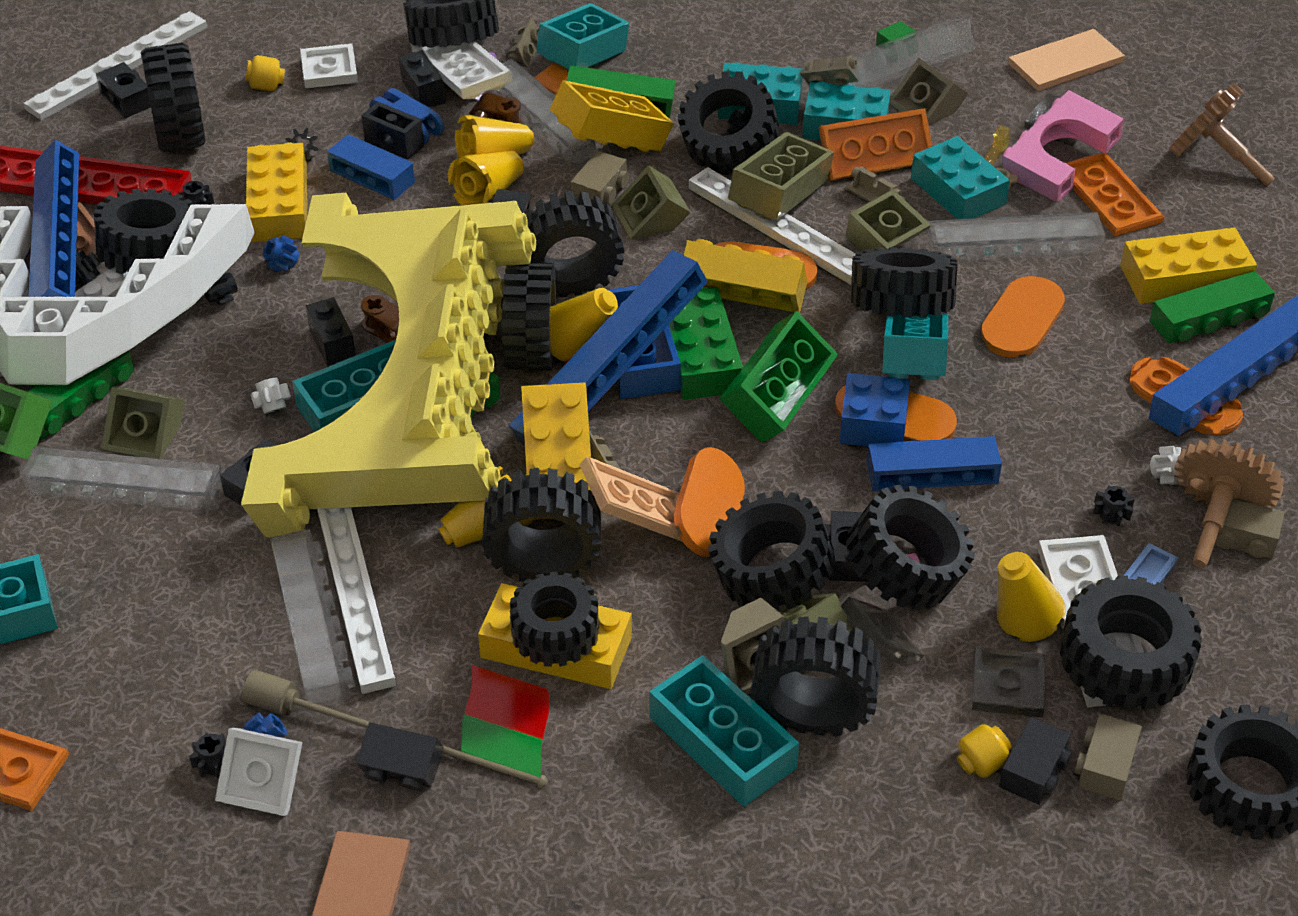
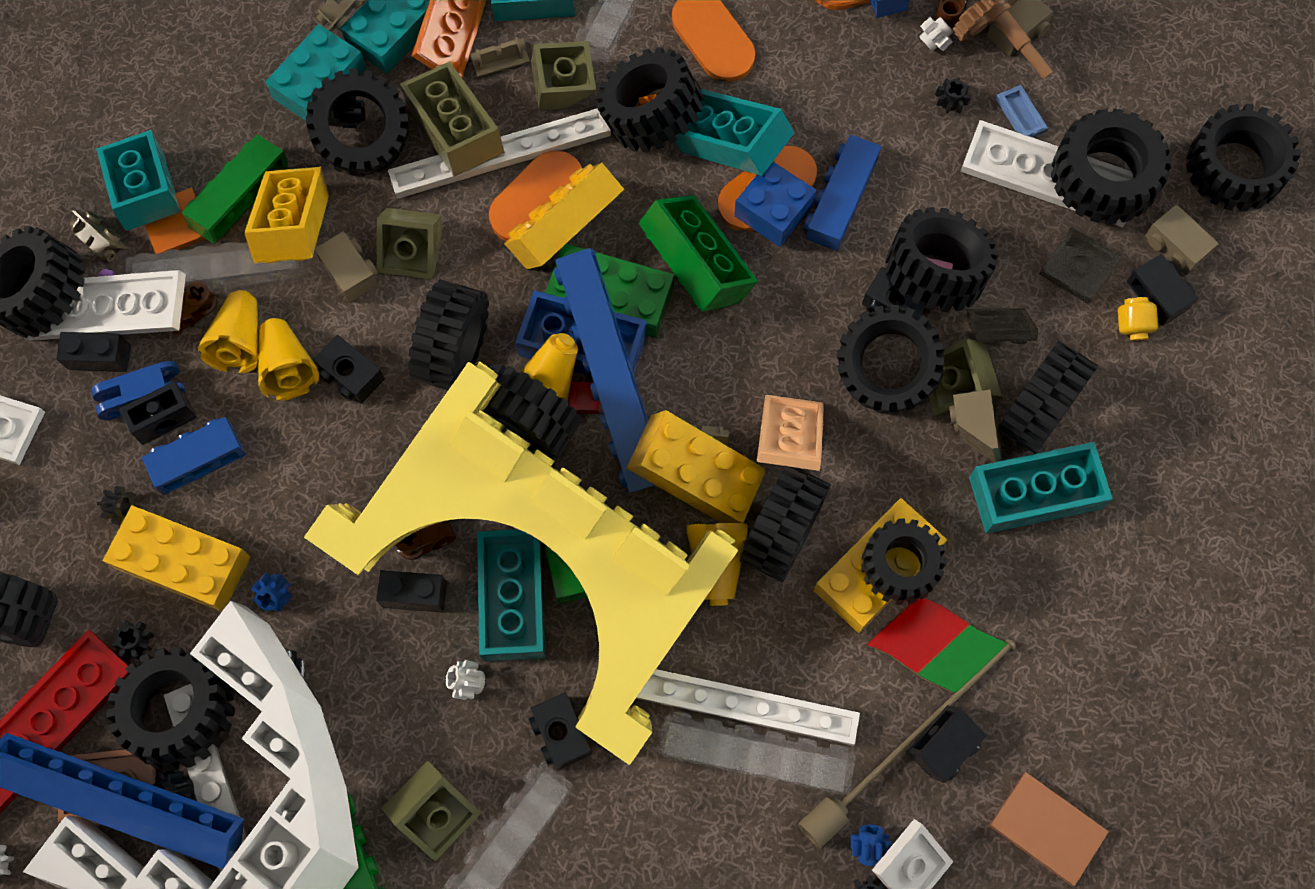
camera: 60 degrees left, 25 degrees up
(708, 490) = (800, 378): orange tile -> none
(1026, 599) = (1023, 211): yellow cone -> none

